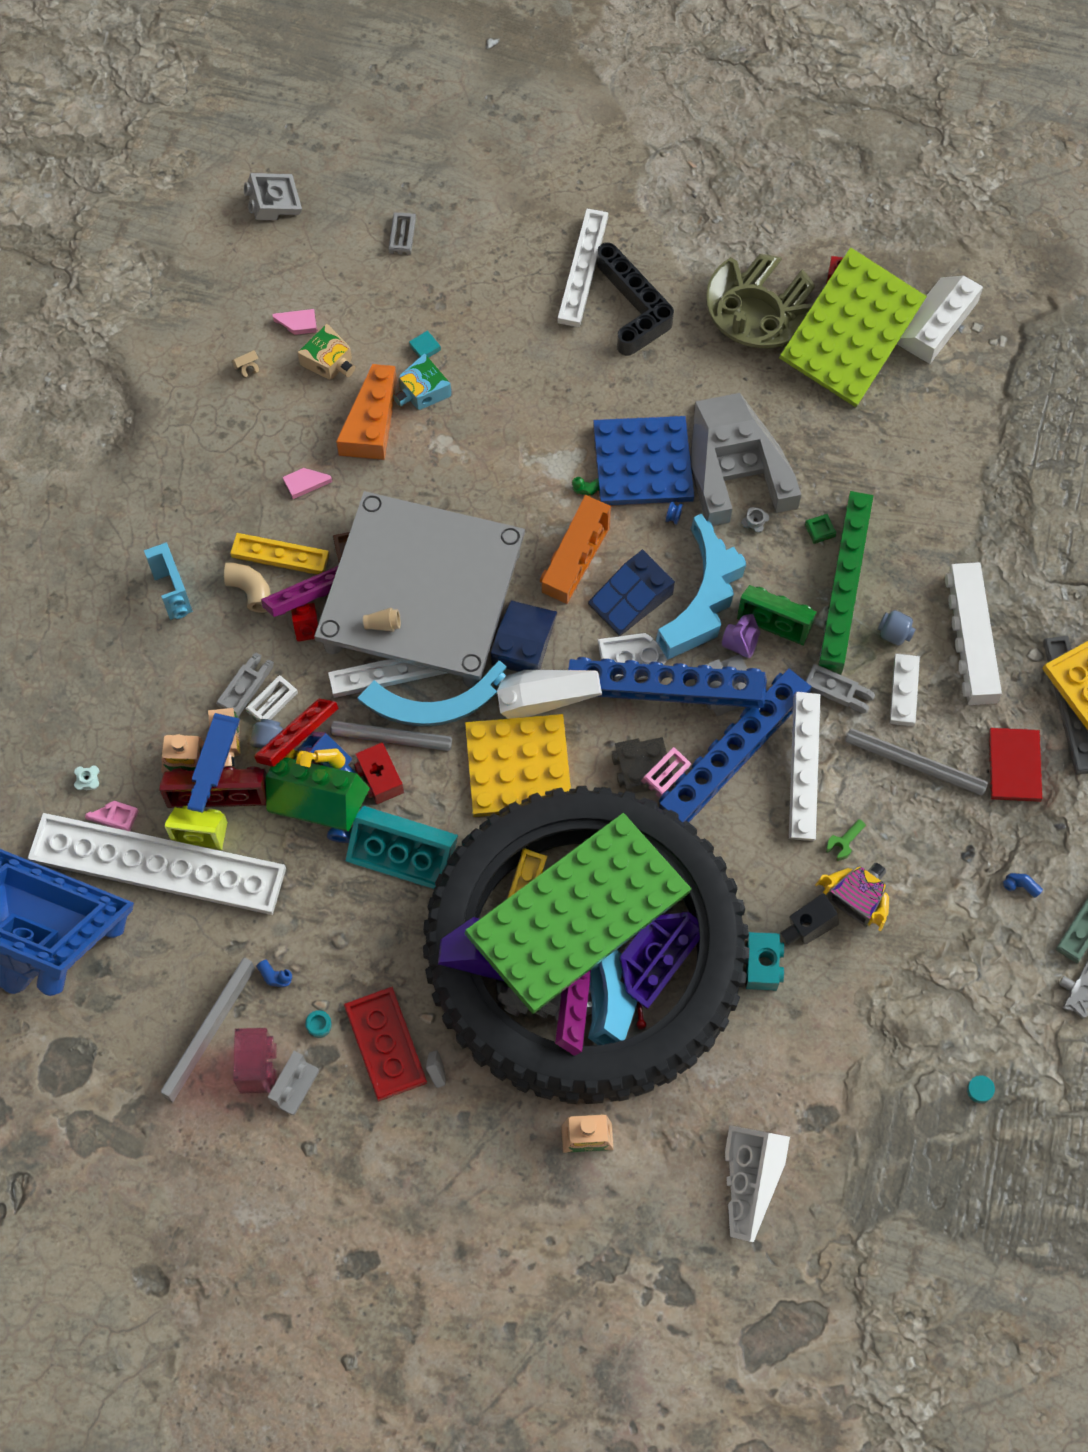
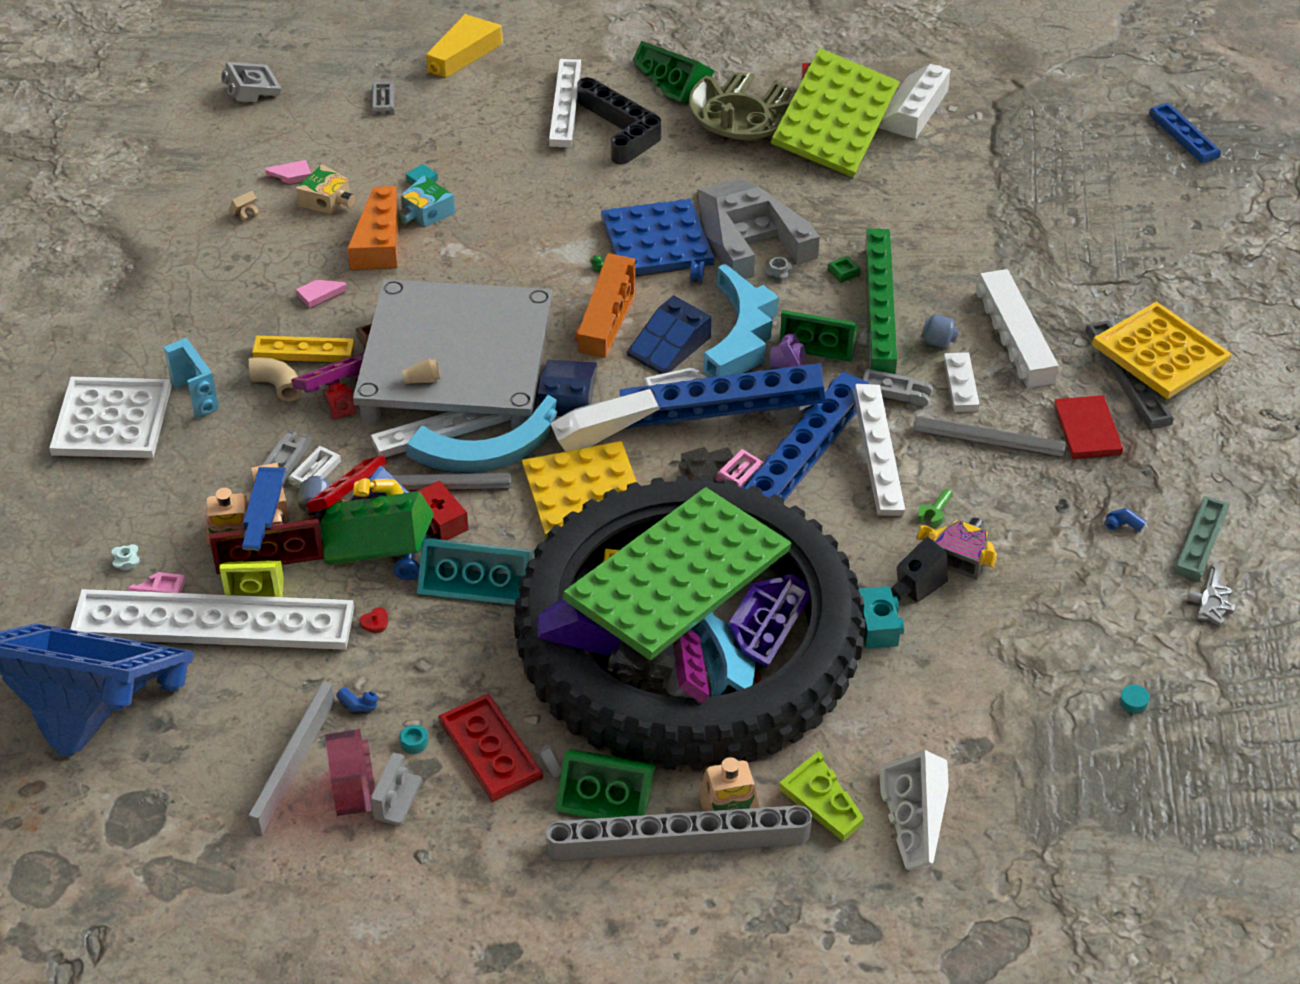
camera: 10 degrees left, 20 degrees down
(90, 610) = (111, 417): none -> white plate
(303, 886) = (375, 621): none -> red piece
(479, 1108) = (603, 785): none -> green slope
(492, 174) = (462, 45): none -> yellow slope
(524, 1160) = (664, 834): none -> light grey beam
(670, 1149) = (818, 790): none -> lime wing
(697, 241) = (670, 71): none -> green wedge

